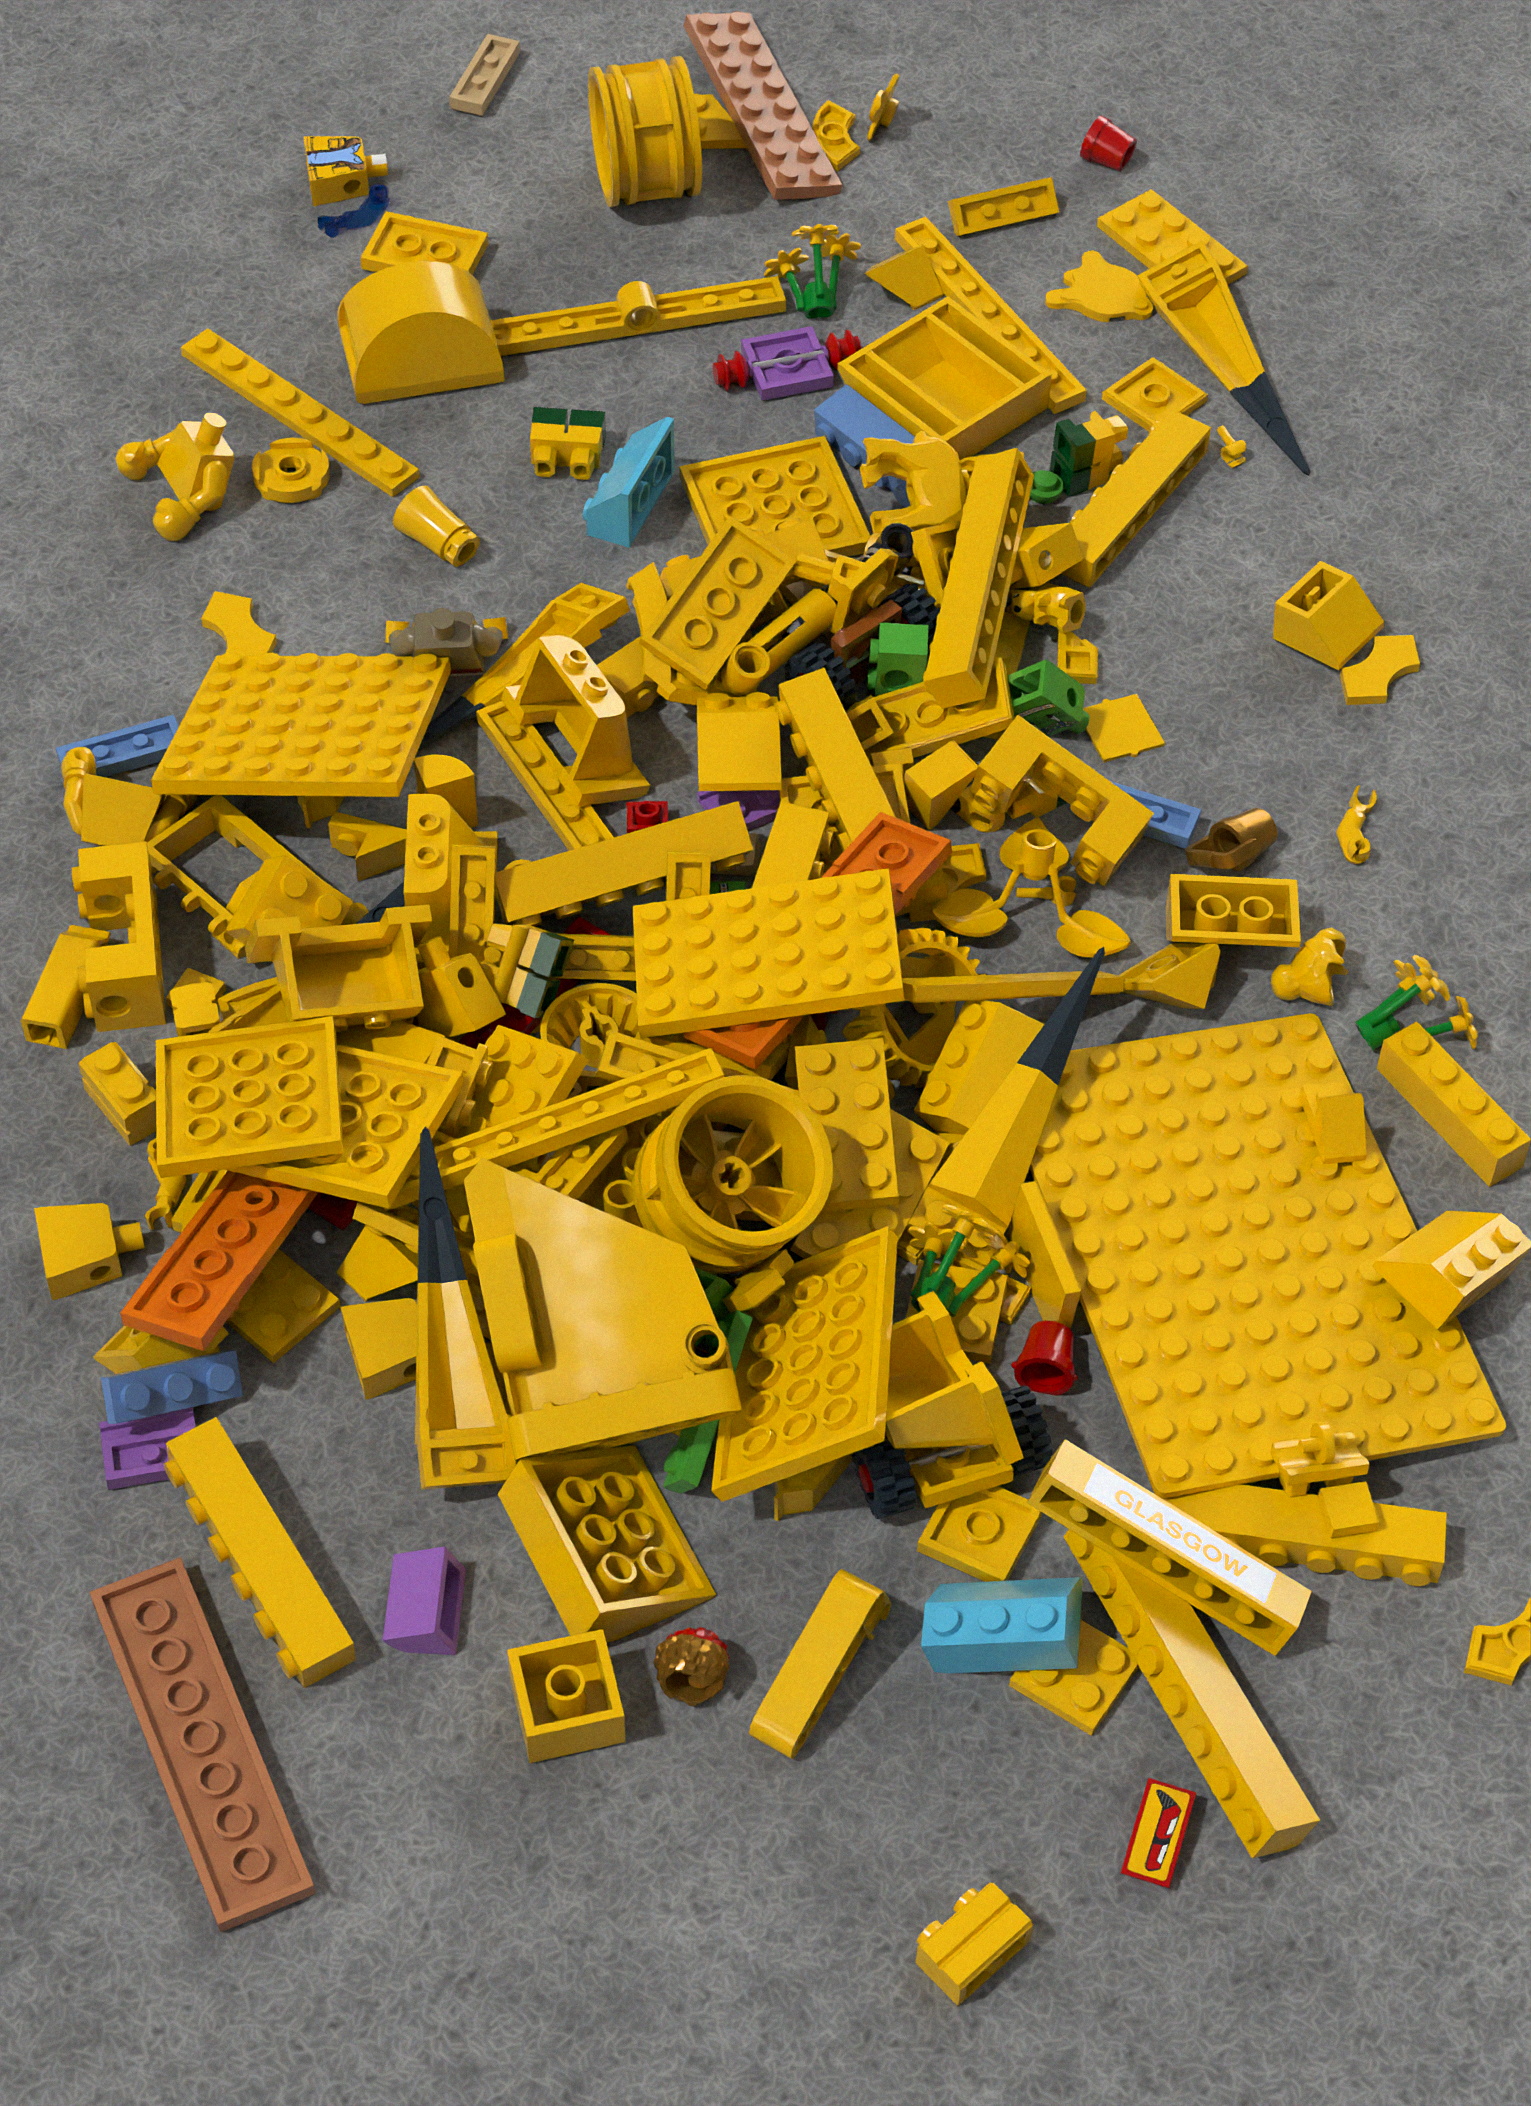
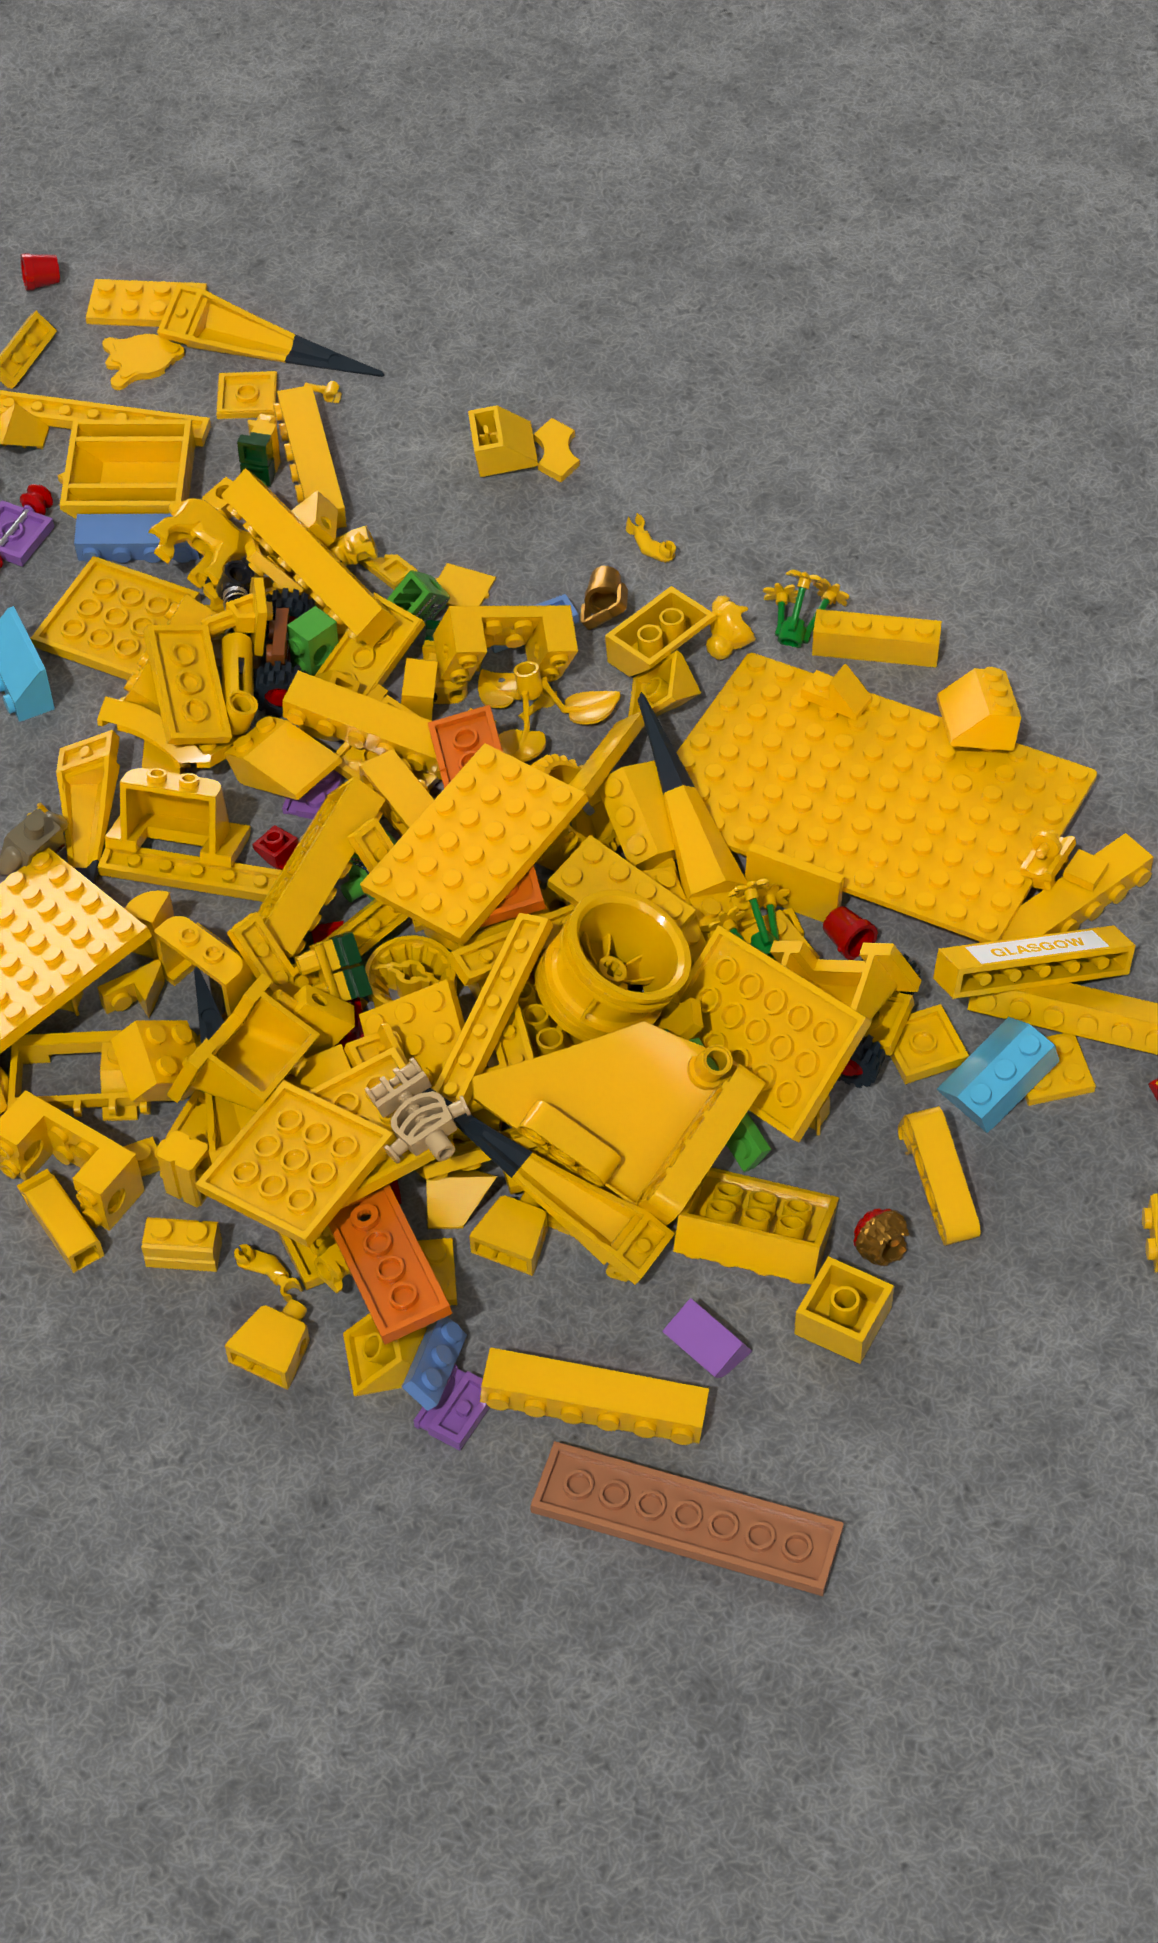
camera: 45 degrees left, 0 degrees up
(380, 1147) = (420, 1118): none -> tan piece

